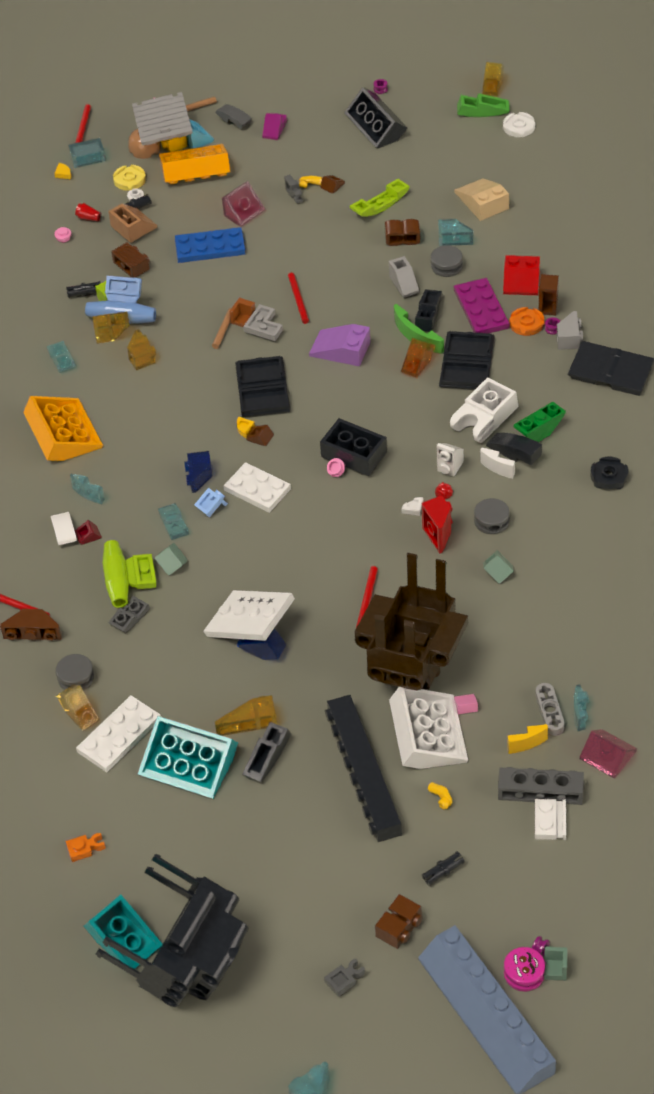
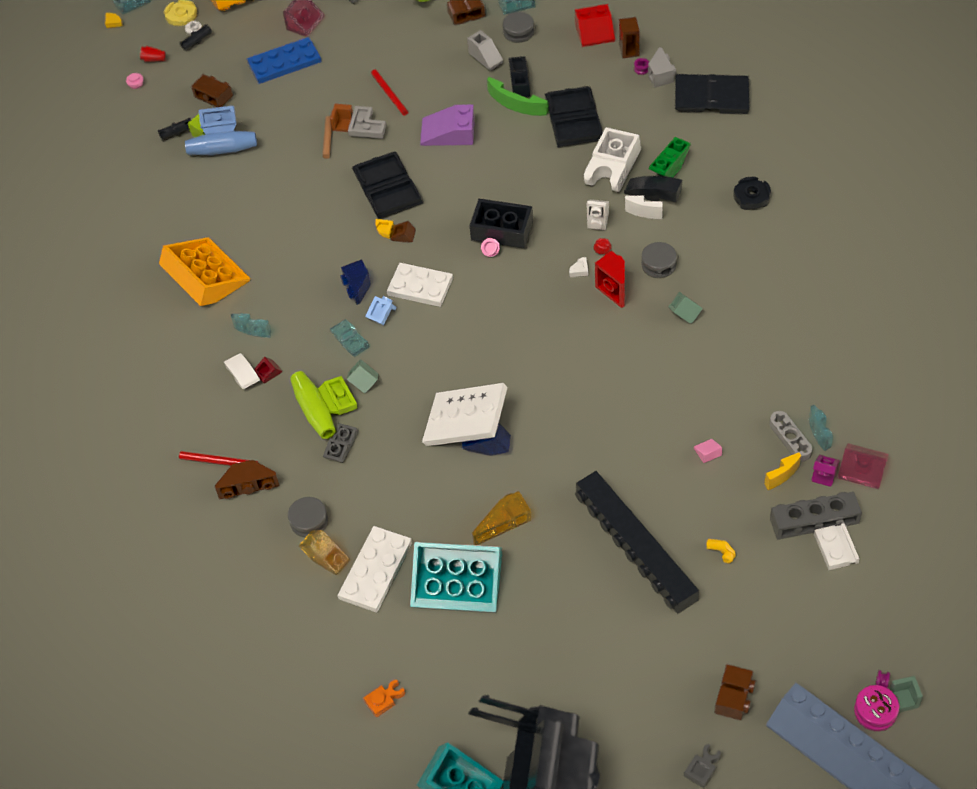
camera: 15 degrees left, 5 degrees up
(61, 357) = (176, 200): clear light blue slope -> none
(110, 326) = (216, 159): clear yellow slope -> none
(130, 222) = (198, 55): medium nougat slope -> none
(140, 351) = (255, 177): clear yellow slope -> none
(266, 752) = (533, 550): black slope -> none
(368, 592) = (570, 369): red bar -> none
(411, 633) = (640, 392): dark brown piece -> none
(417, 357) = (527, 124): clear orange slope -> none
(427, 728) = (682, 485): white slope -> none
(443, 868) = (754, 624): black pin -> none
(481, 306) = (567, 62): magenta plate -> none
(526, 321) = (615, 67): orange tile -> none
(568, 747) = (824, 470): none -> magenta slope

